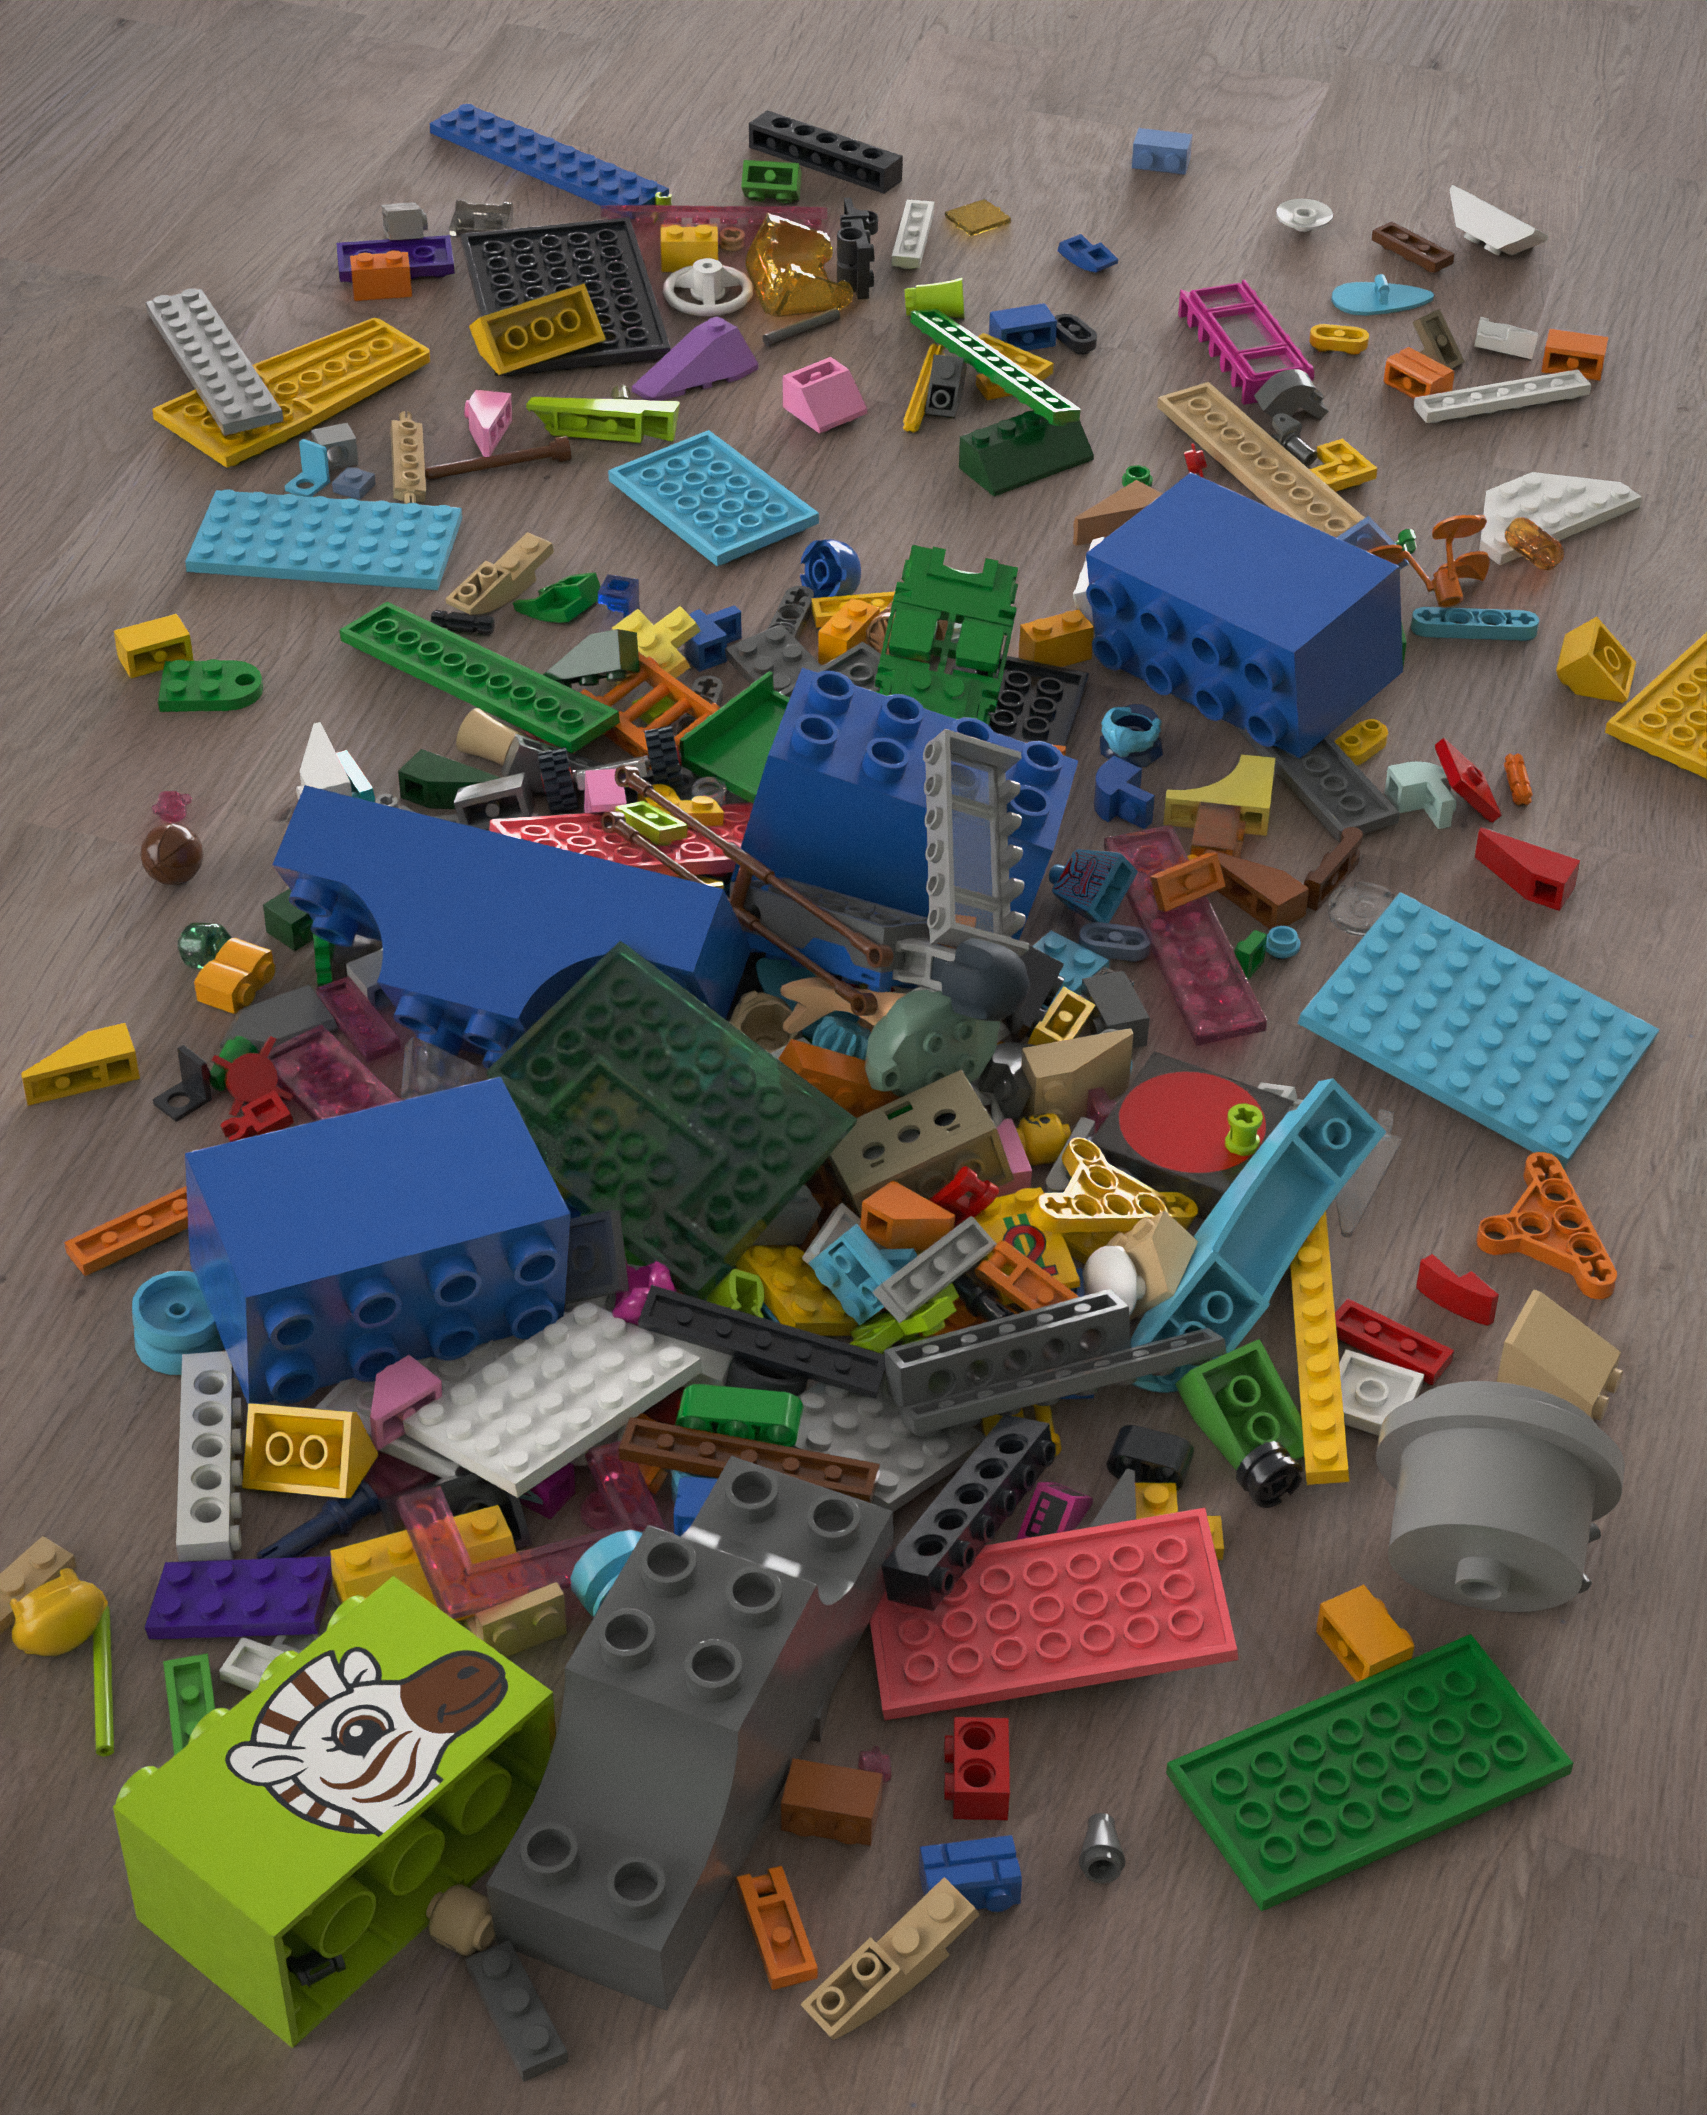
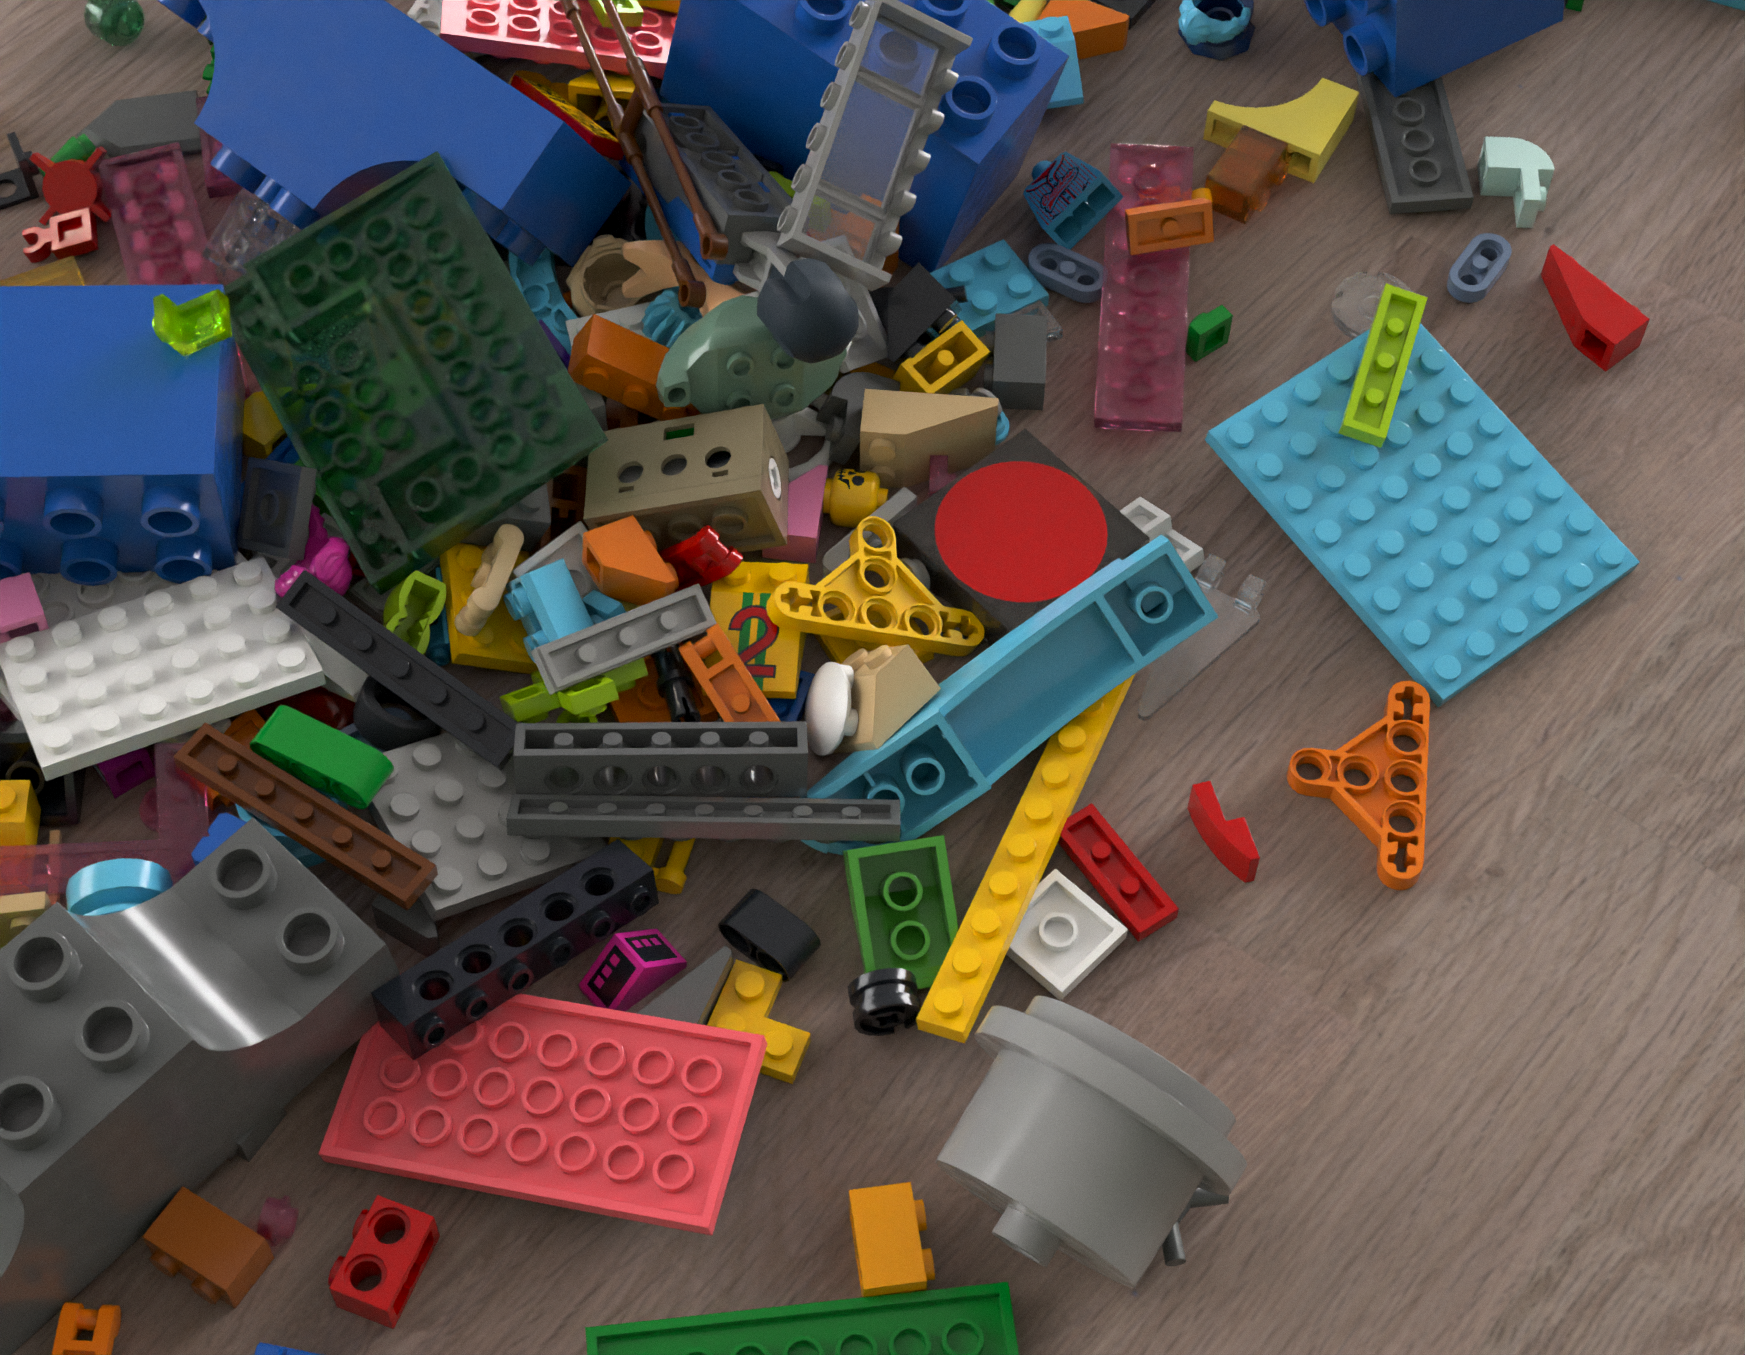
camera: 20 degrees right, 15 degrees up
(234, 975) = (126, 59): light orange brick -> none
(502, 1104) = (193, 323): none -> clear neon green bracket
(797, 1260) = (490, 579): none -> tan plate
(1120, 793) = (1166, 88): blue brick -> none
(1244, 1123) = (1064, 559): lime bush -> none
(1263, 891) = (1262, 252): dark orange slope -> none
(1282, 942) = (1256, 325): medium azure plate -> none
(1334, 868) = (1361, 248): reddish brown plate -> none
(1363, 740) = (1481, 94): yellow plate -> none
(1410, 932) = (1383, 365): none -> lime plate
(1429, 861) = (1472, 273): none -> sand blue plate
(1467, 780) = (1571, 178): red plate -> none
(1518, 779) = (1640, 189): orange axle -> none
(1560, 1356) = (1284, 969): tan slope -> none

